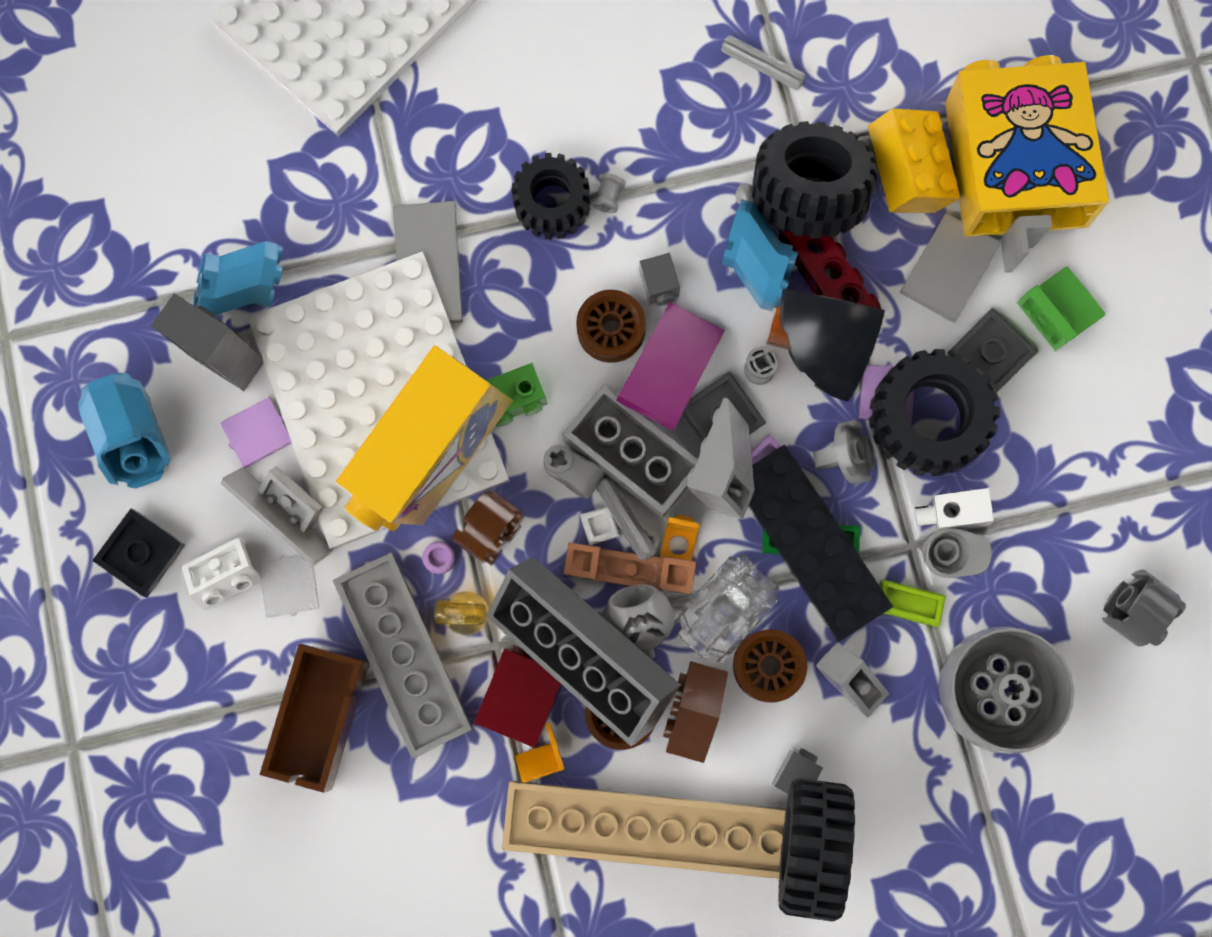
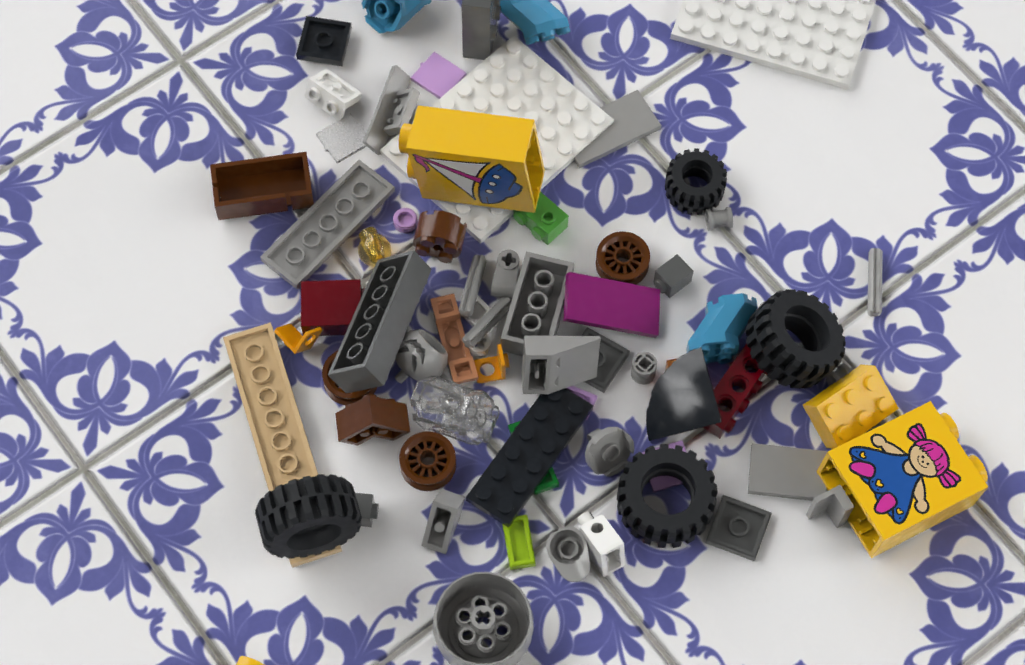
camera: 60 degrees right, 15 degrees down
(568, 515) = (472, 285): none -> light grey axle
(1060, 308) = (797, 561): bright green bracket -> none

